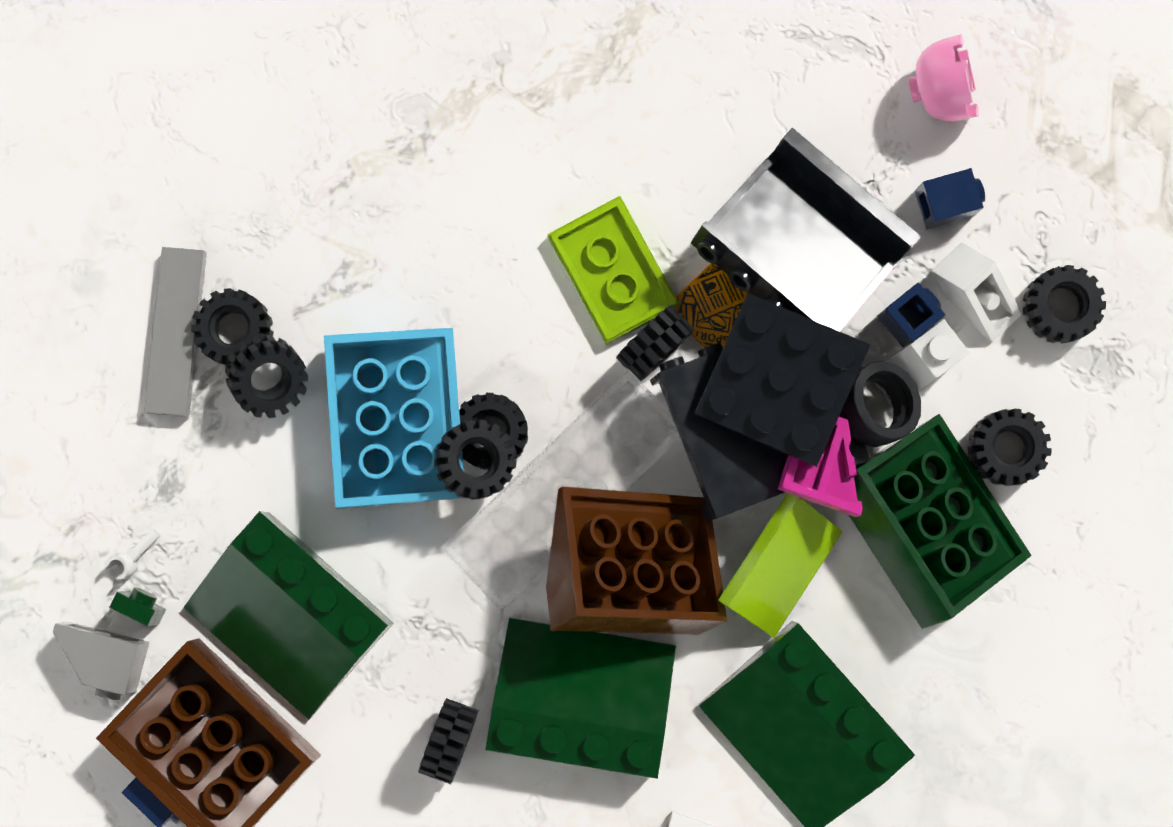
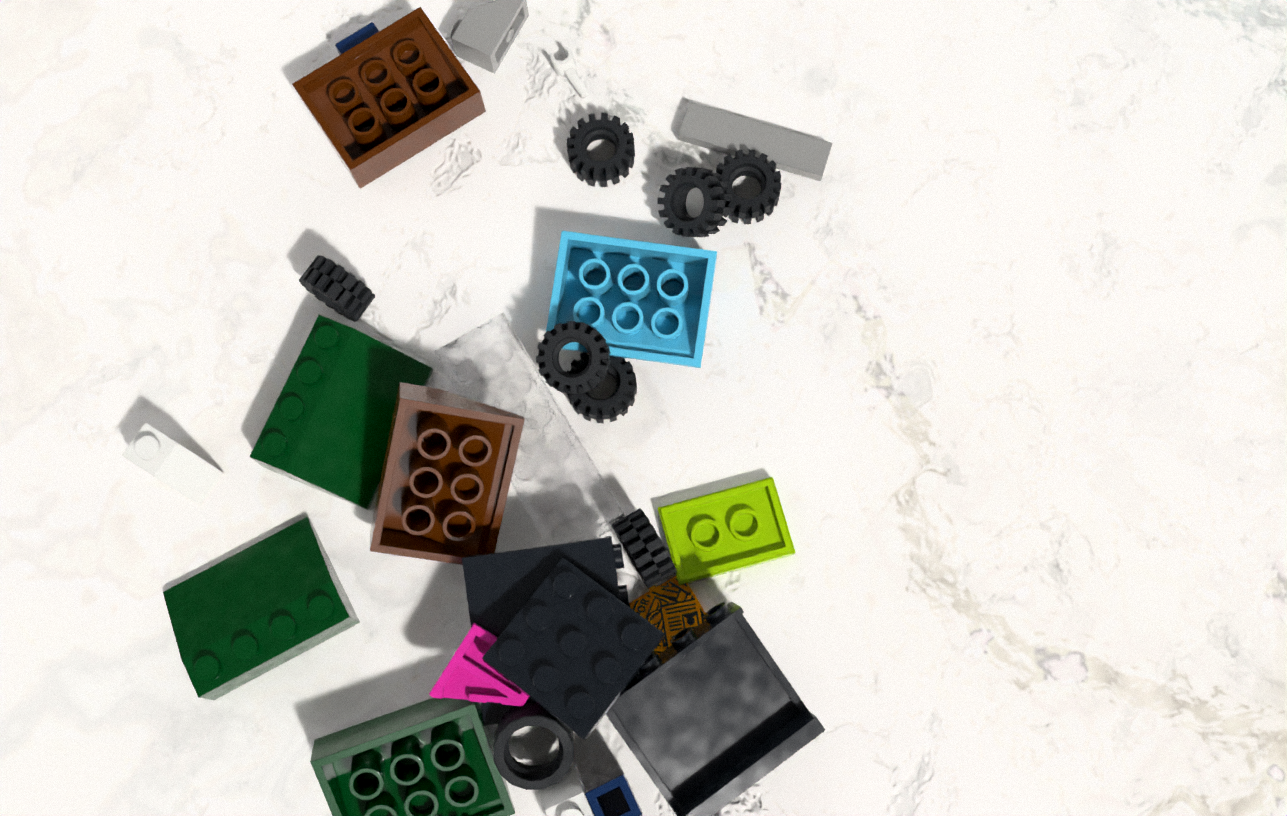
camera: 105 degrees right, 10 degrees down
(138, 606) = (523, 66): dark green plate -> none
(196, 491) = (596, 130): none -> black tyre
(287, 613) = (488, 186): dark green slope -> none
(781, 565) = (408, 616): lime tile -> none

